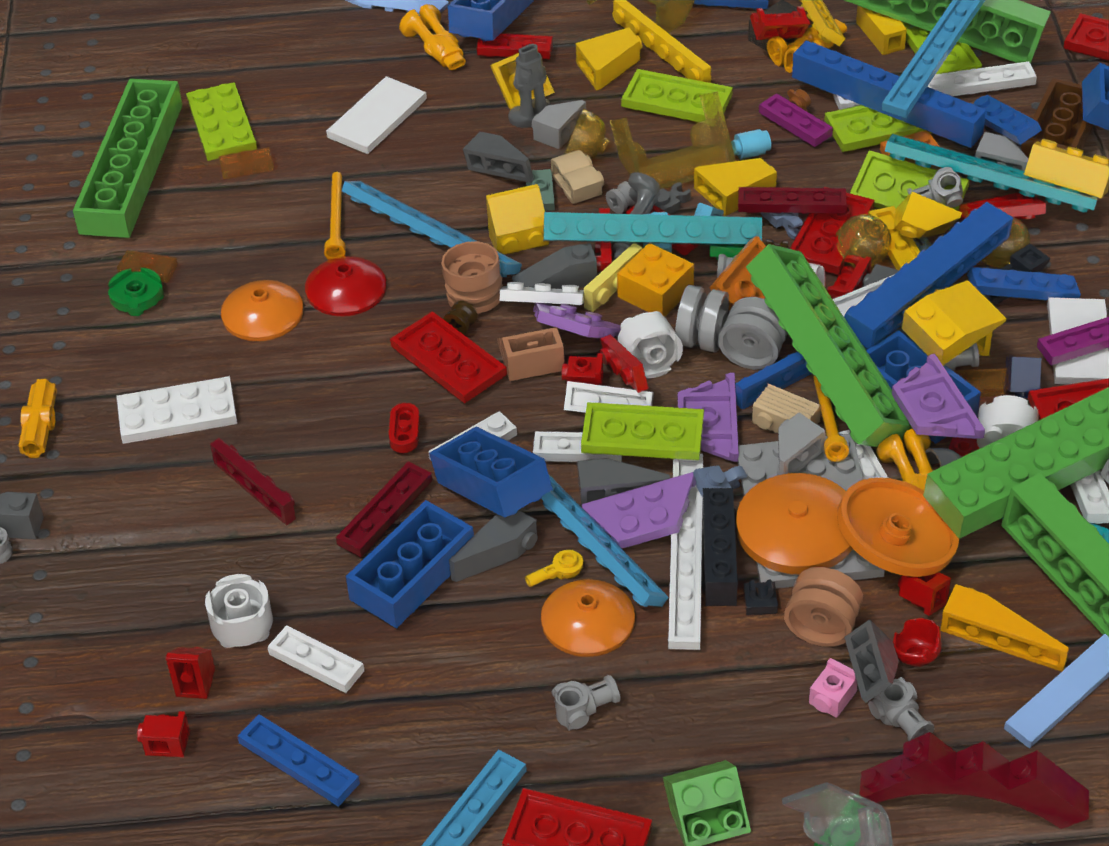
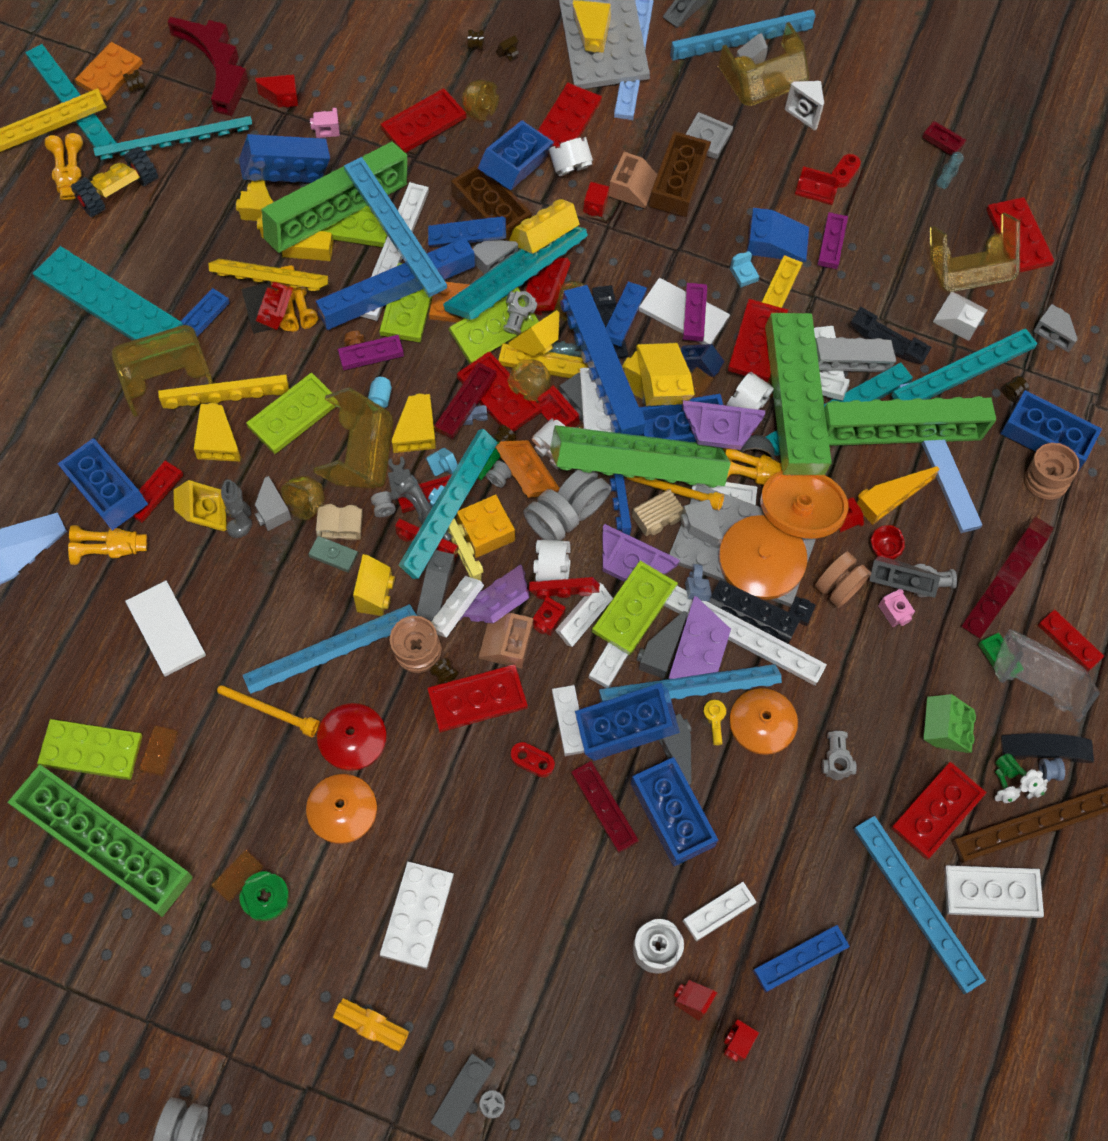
camera: 70 degrees left, 20 degrees up
(254, 482) = (521, 889): dark red plate -> none
(497, 157) = (283, 566): dark grey slope -> none

